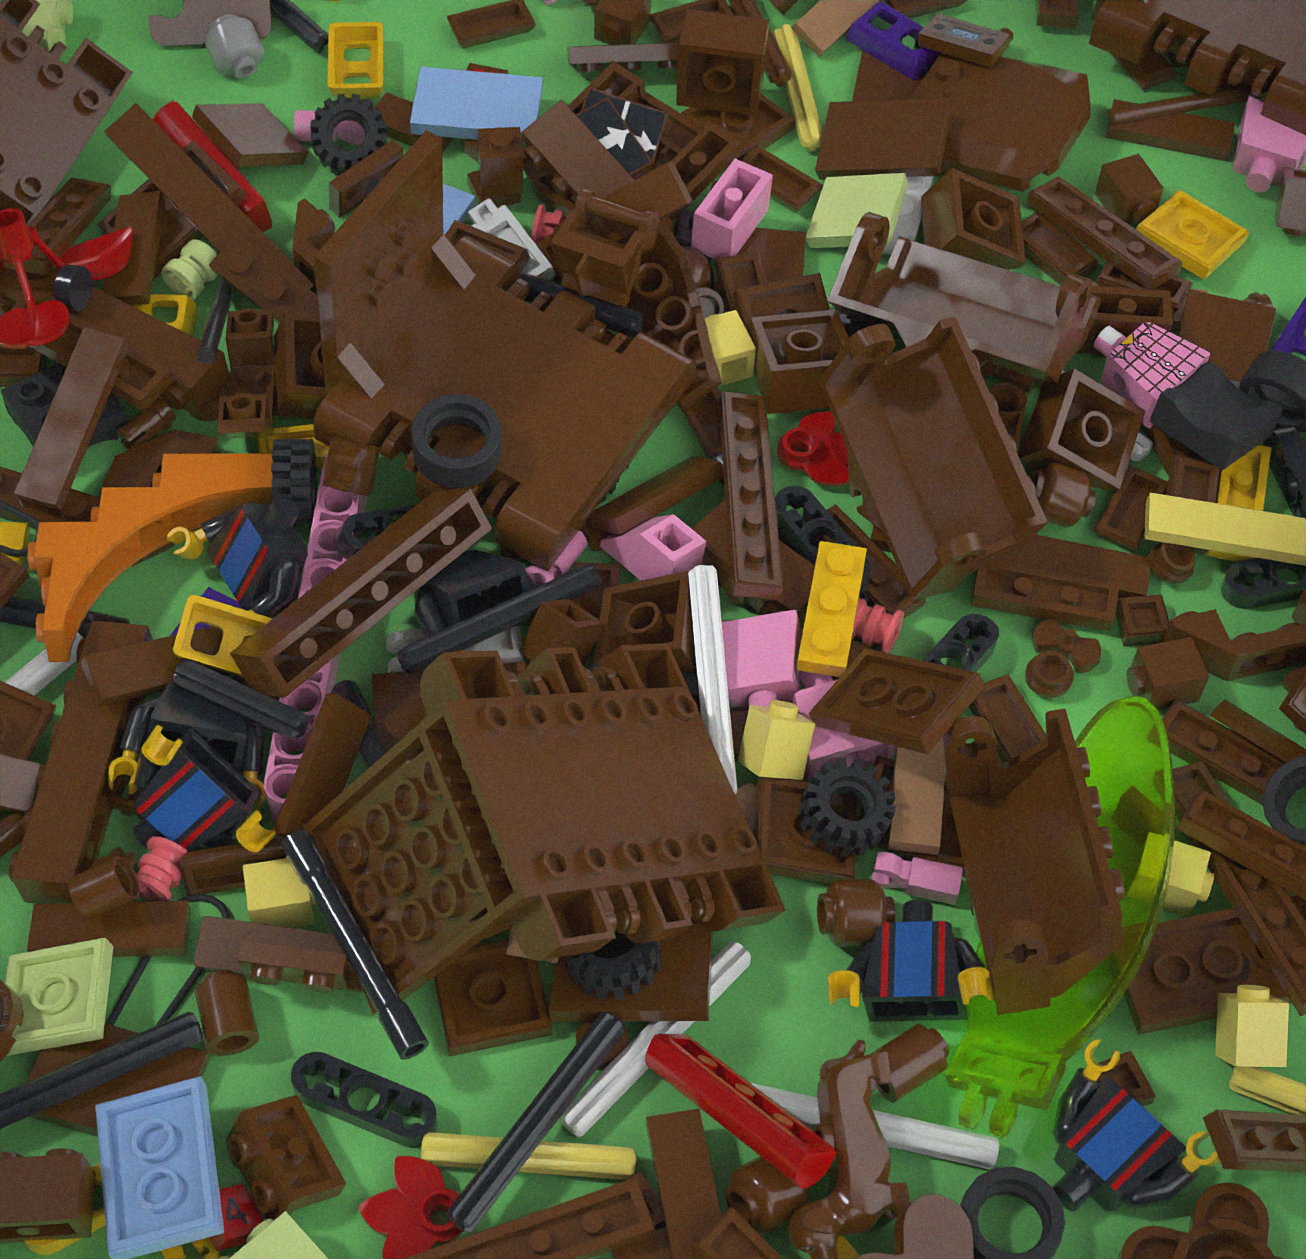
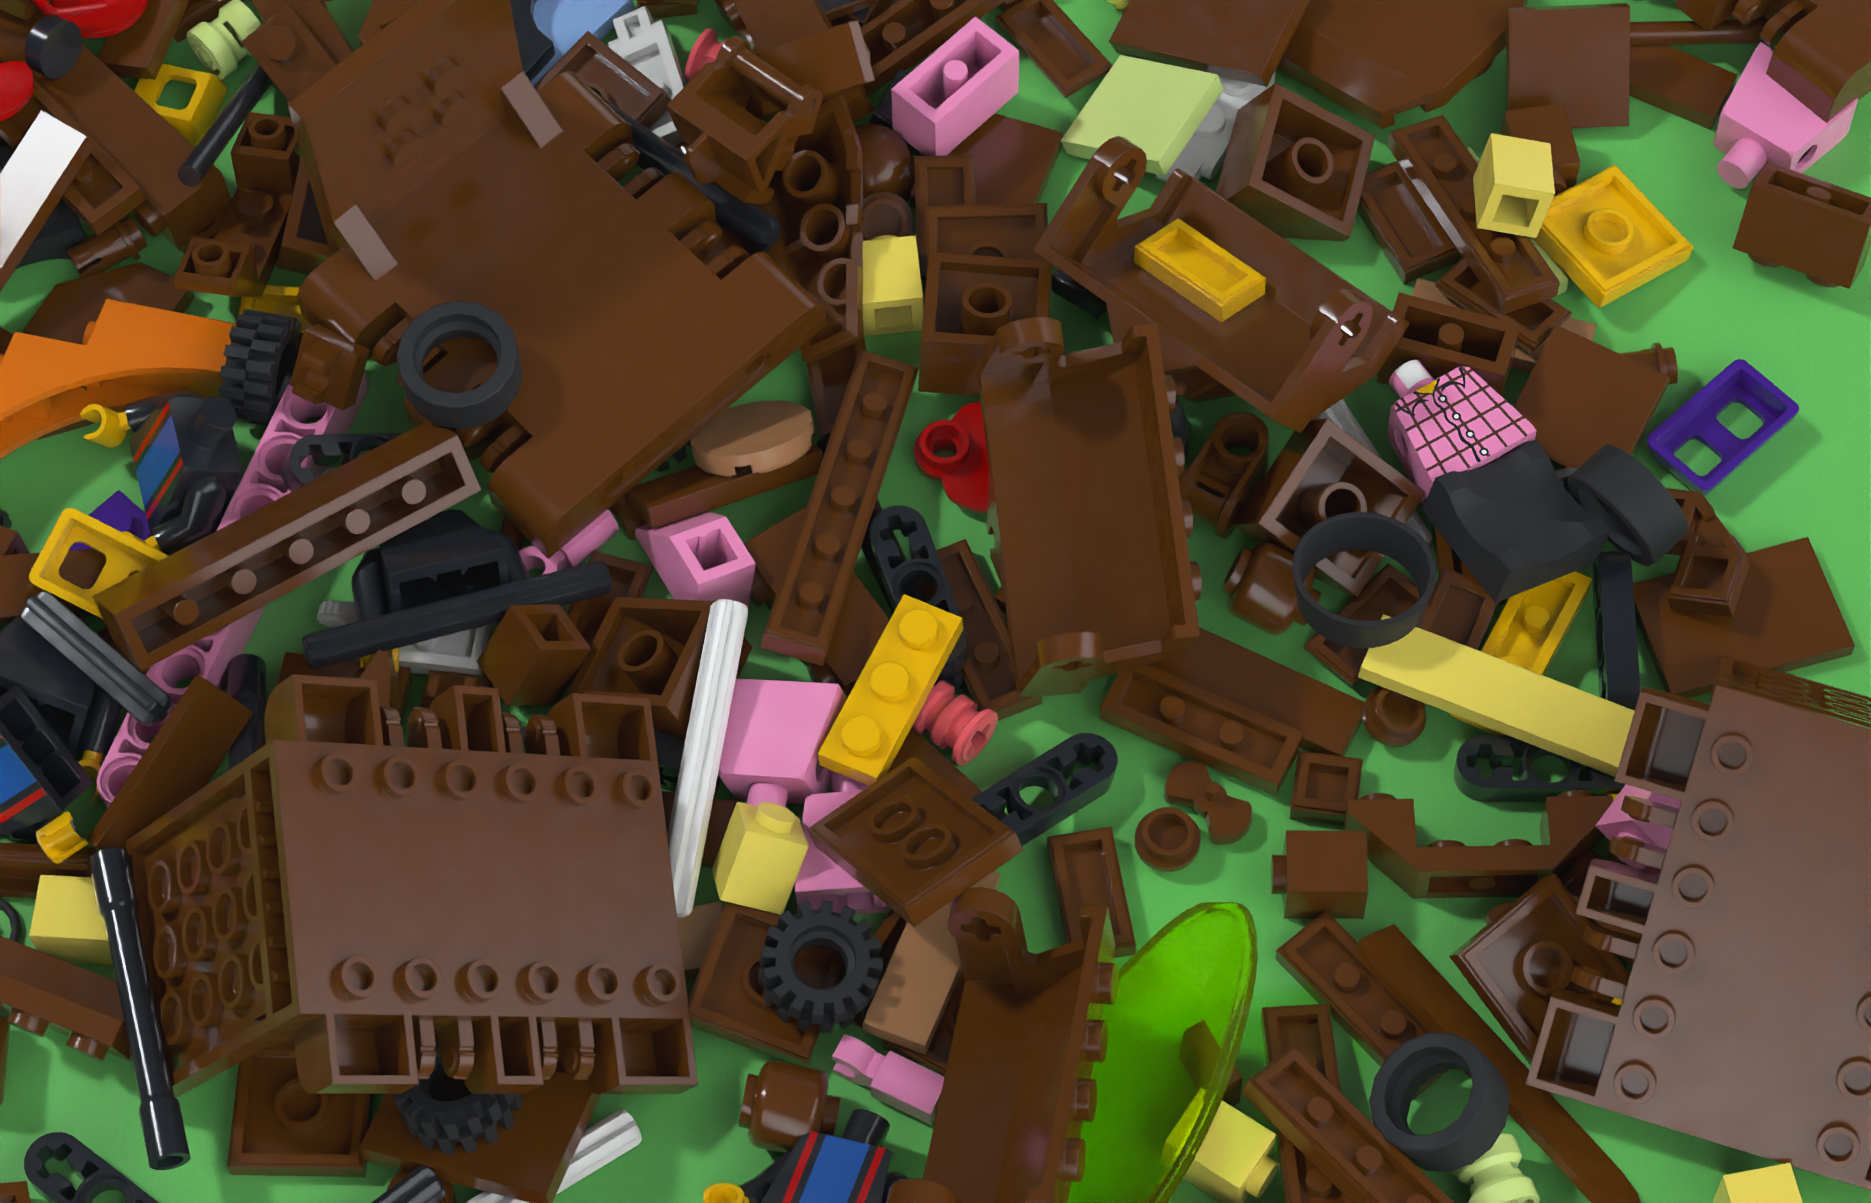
camera: 20 degrees right, 5 degrees up
(666, 460) = (755, 435): none -> medium nougat tile
(939, 297) = (1199, 270): none -> yellow tile
(1129, 125) = (1570, 58): none -> reddish brown tile
(1132, 205) = (1513, 185): none -> light yellow brick
(1136, 442) = (1369, 533): none -> black tyre

